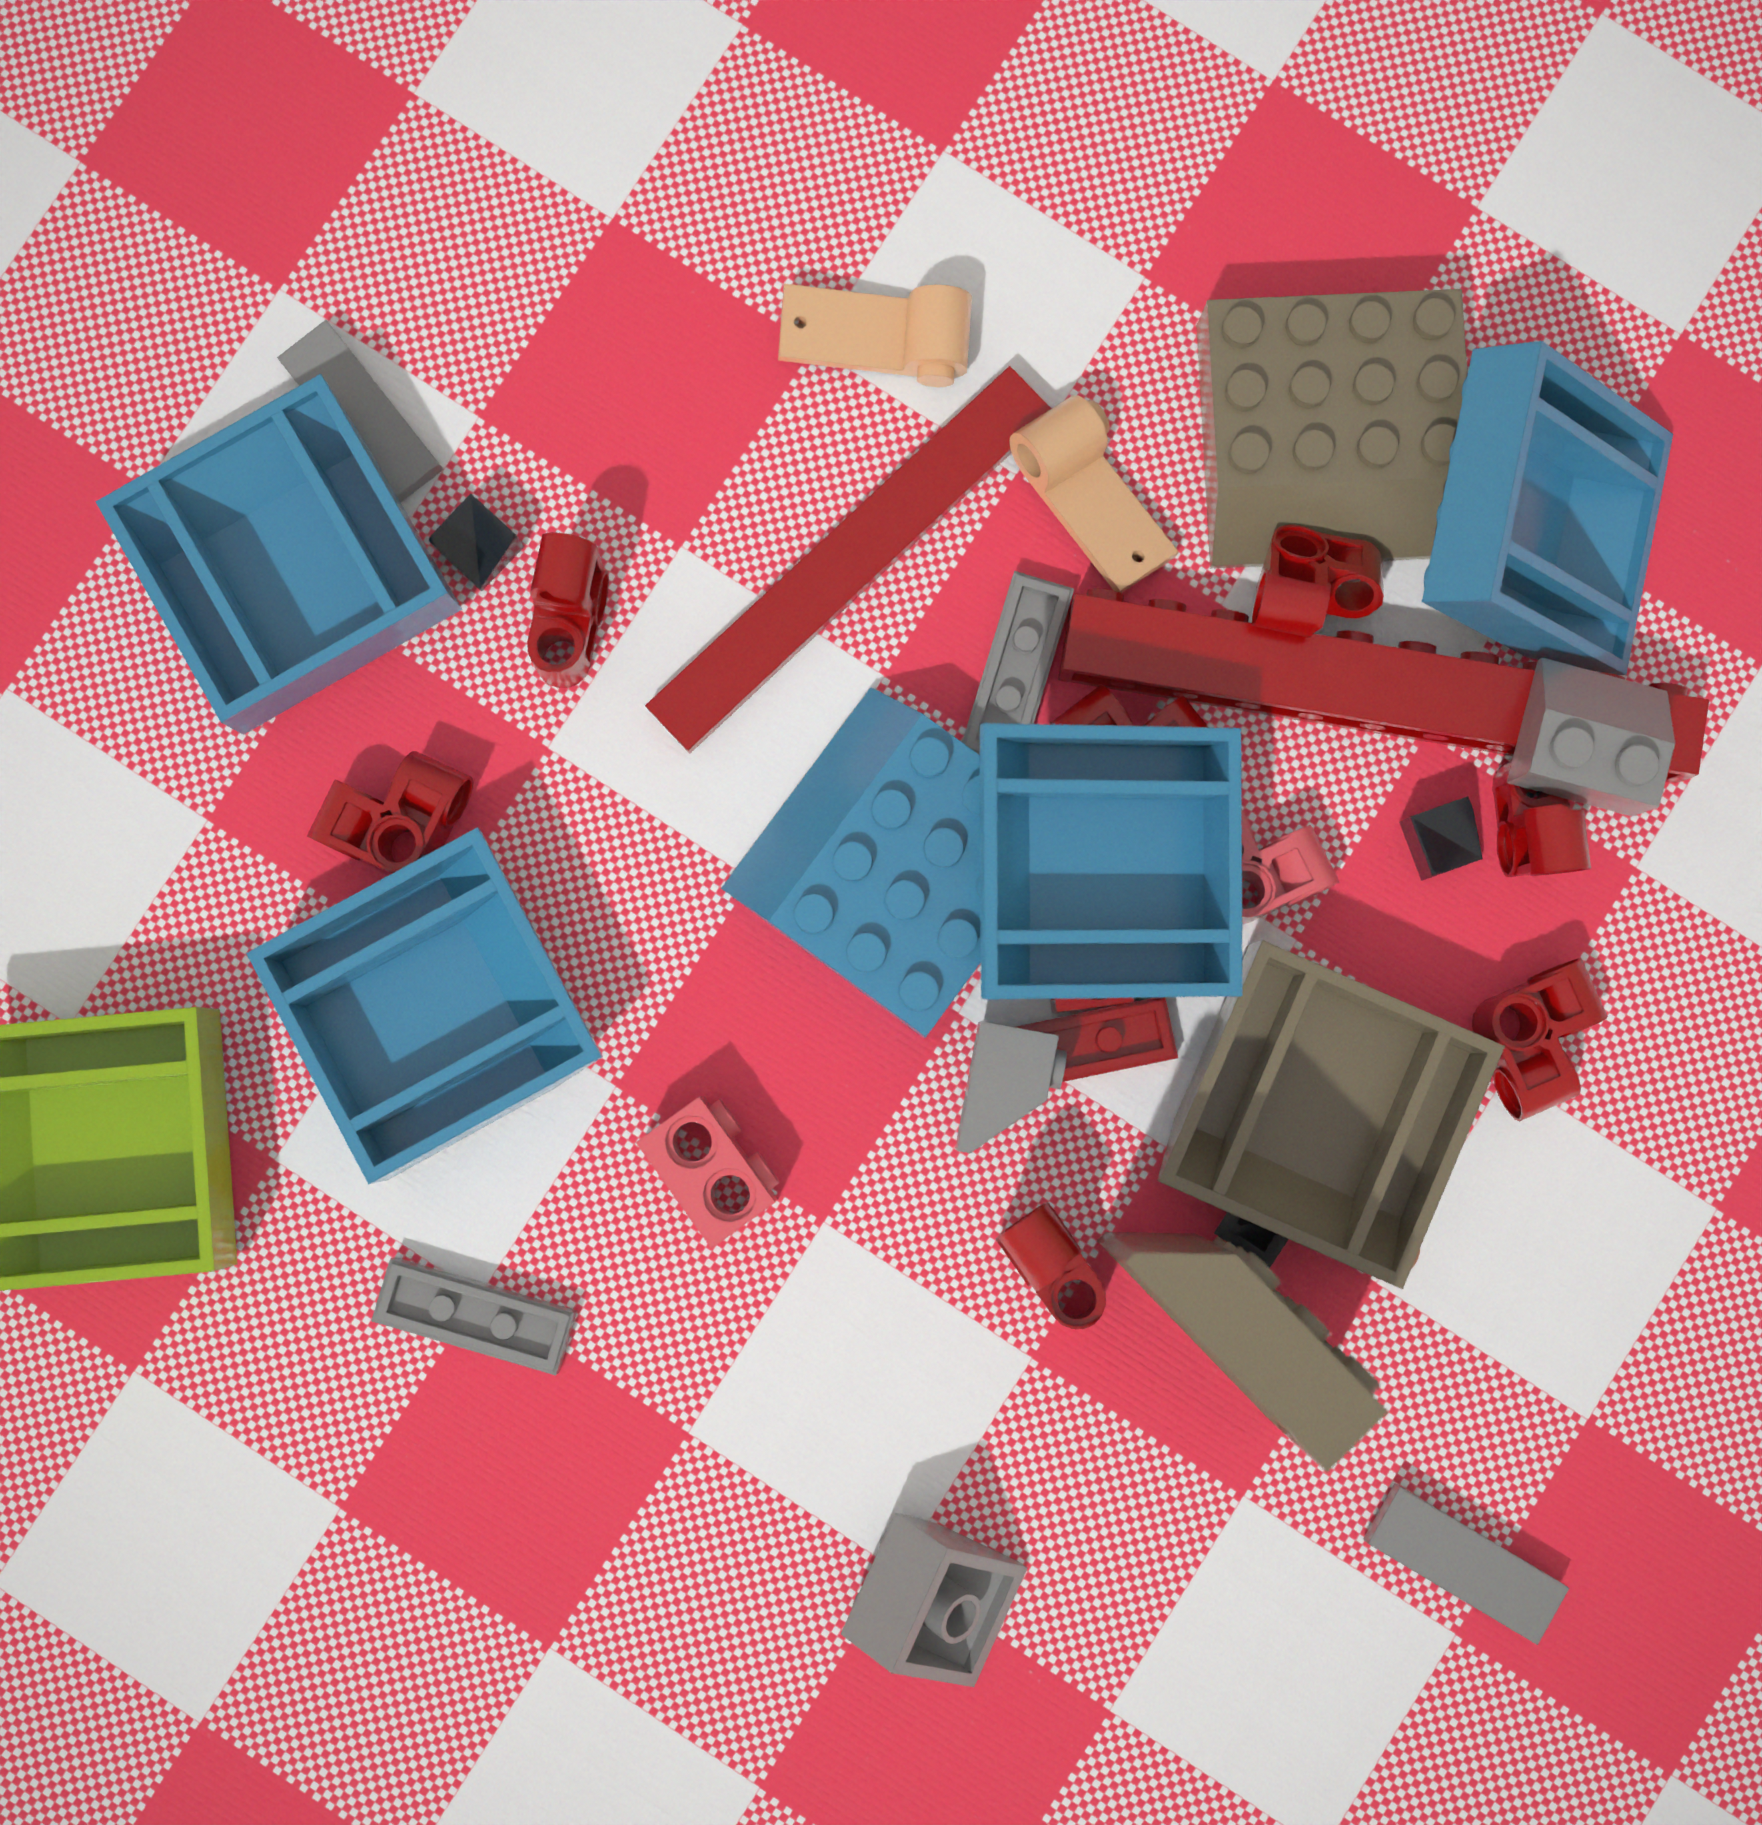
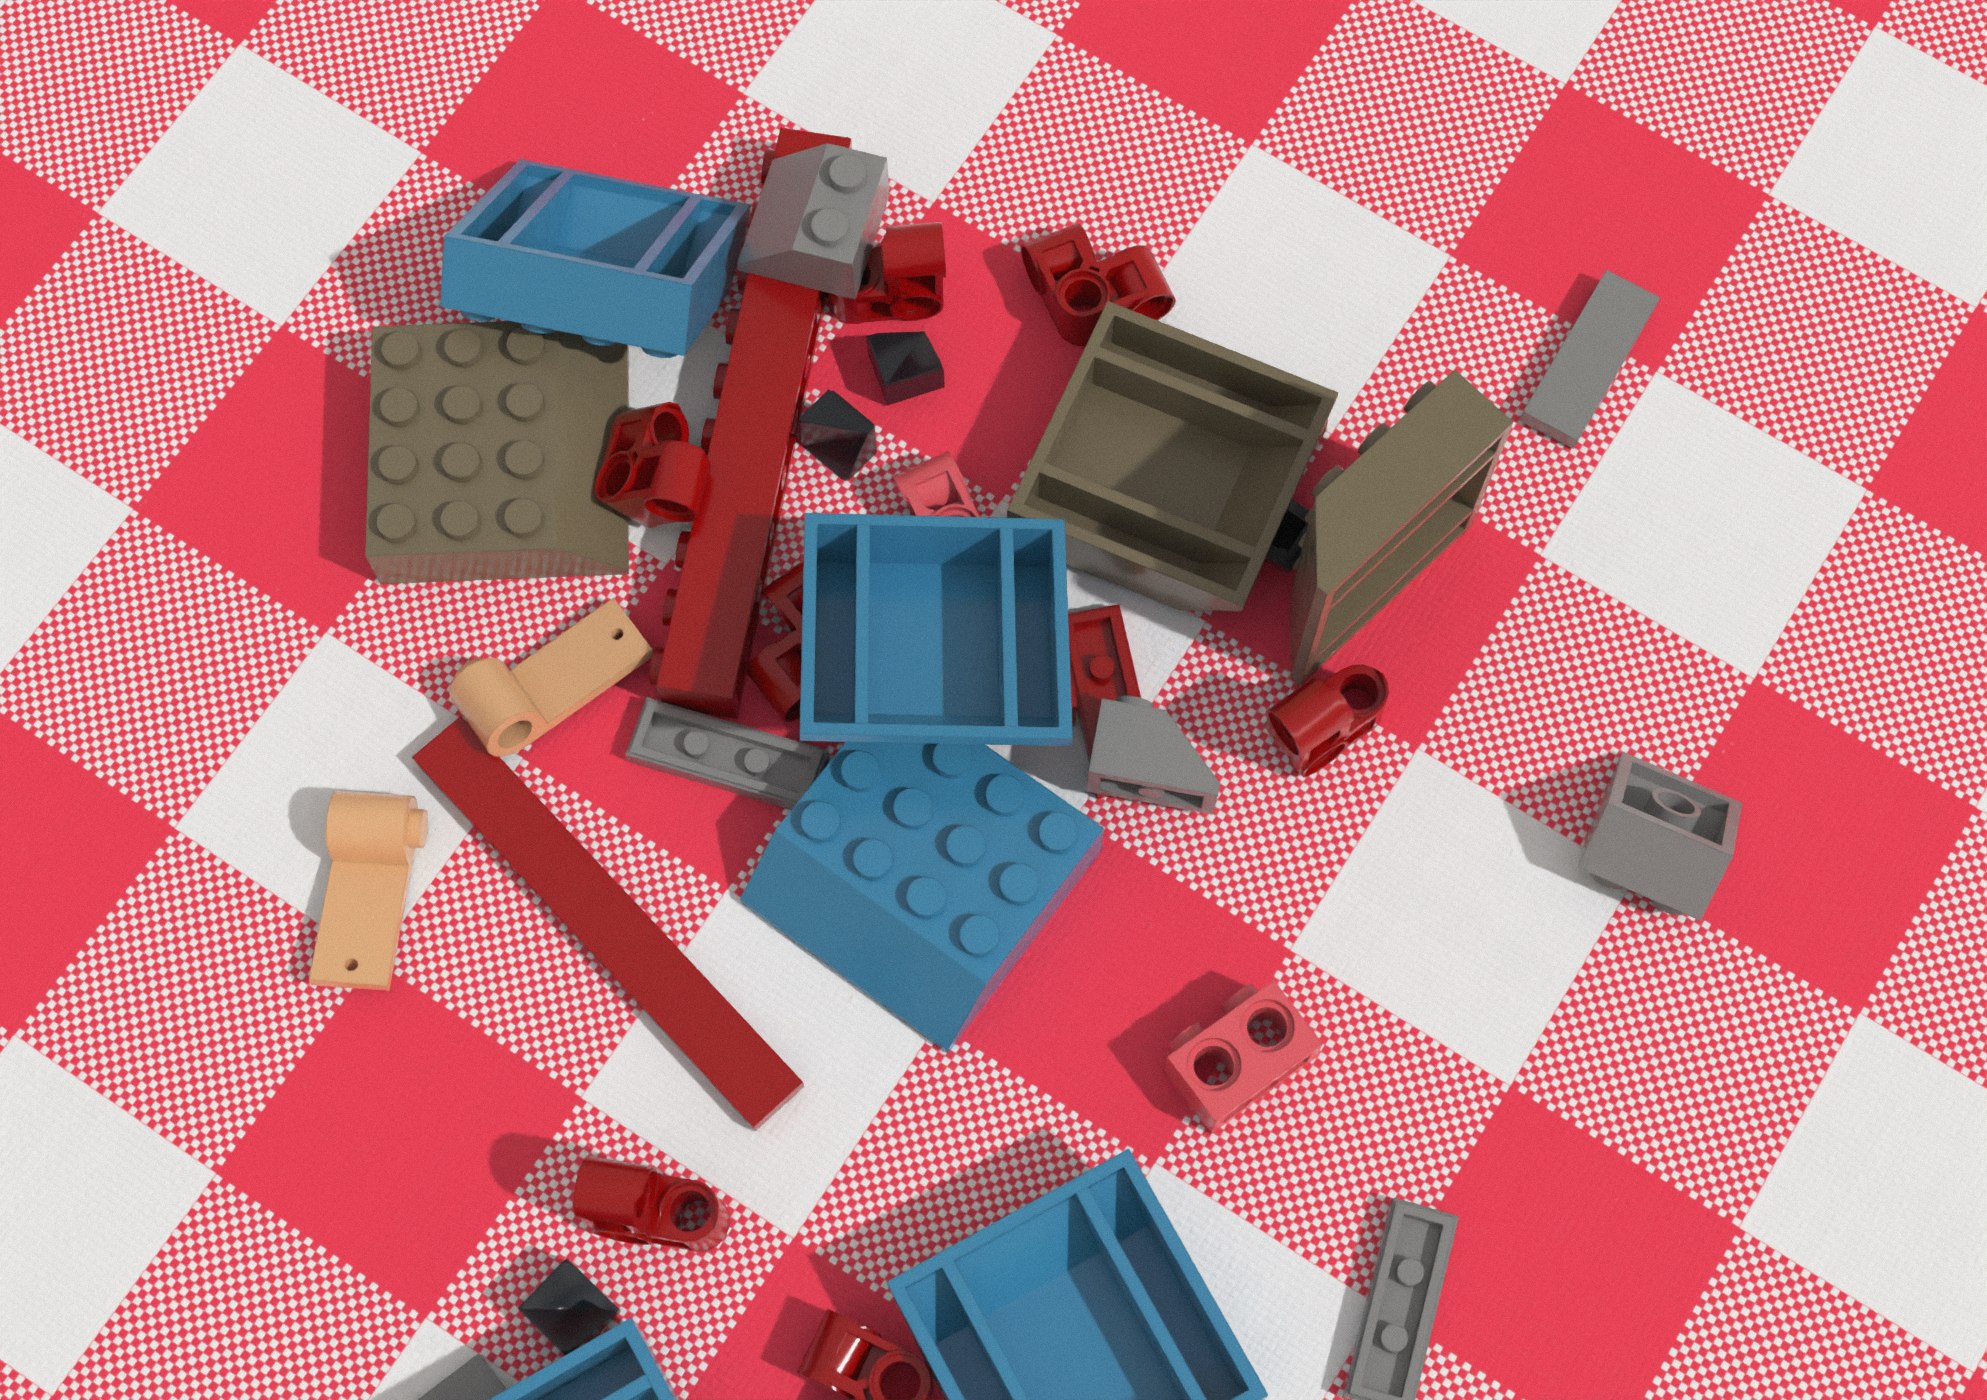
camera: 90 degrees left, 15 degrees down
(1358, 770) = (837, 435): none -> black slope

